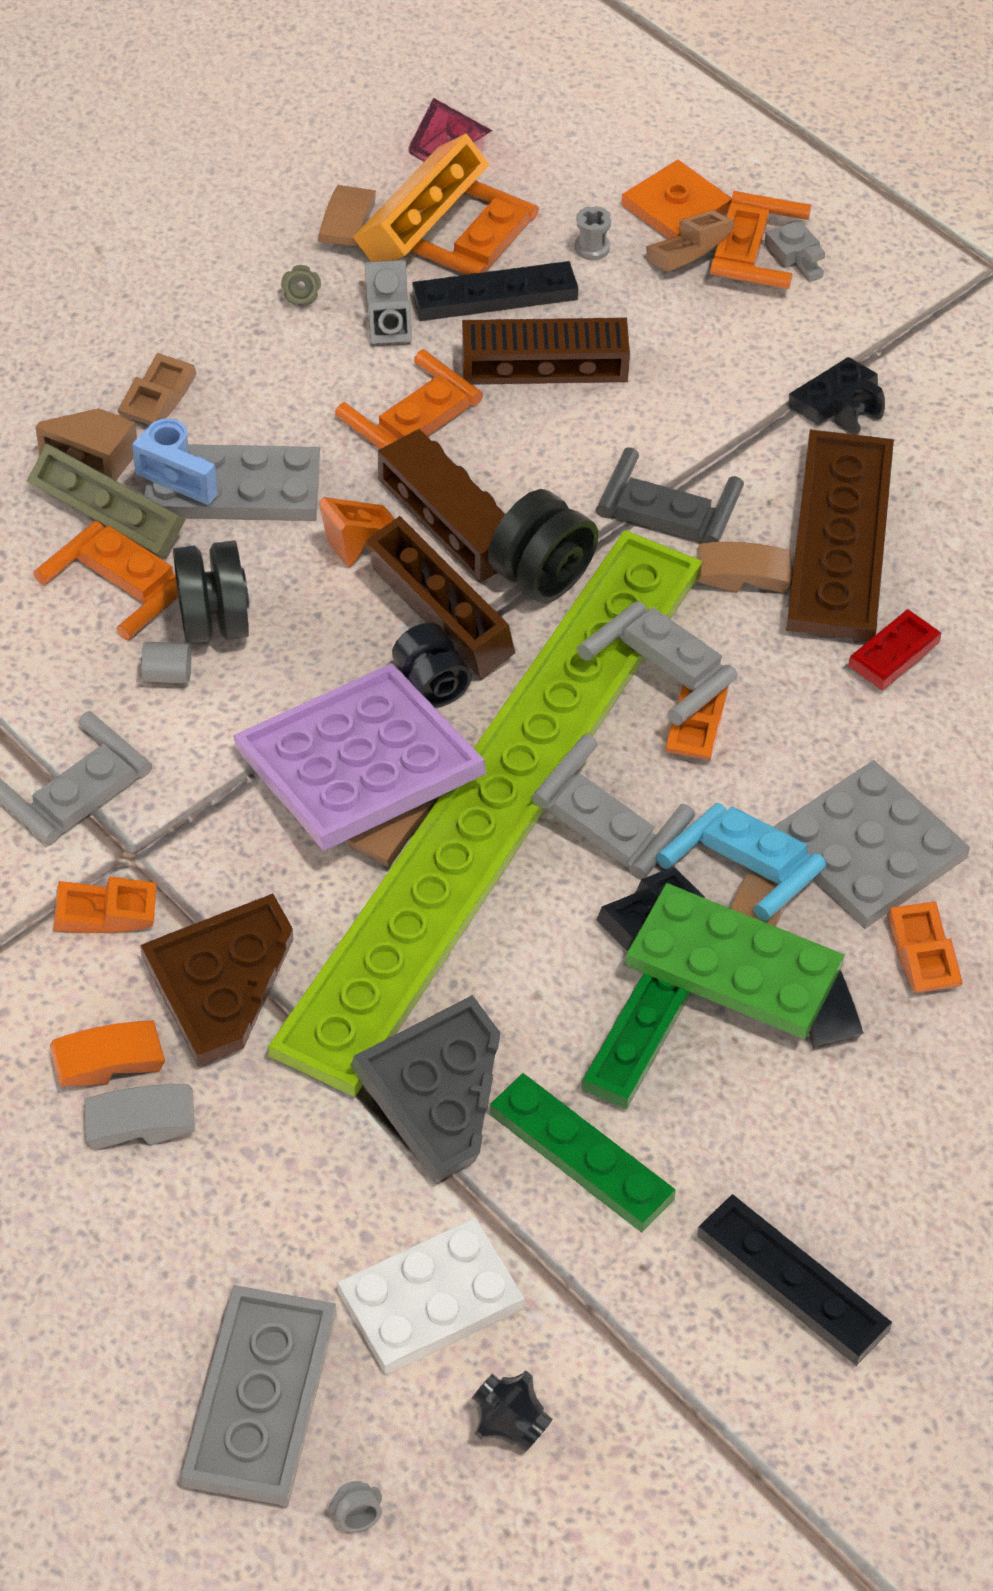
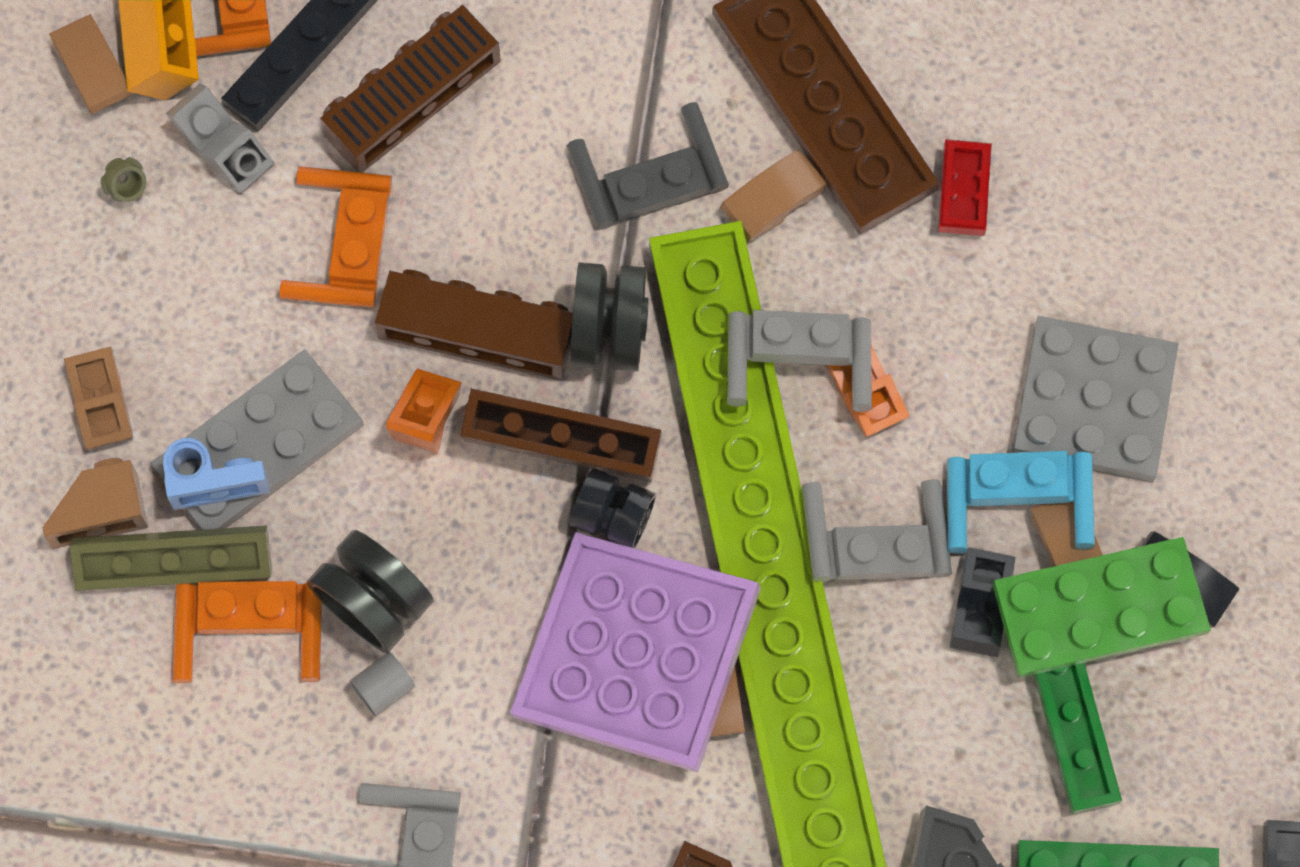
camera: 40 degrees left, 20 degrees up
(923, 948) = (1216, 469): orange slope -> none

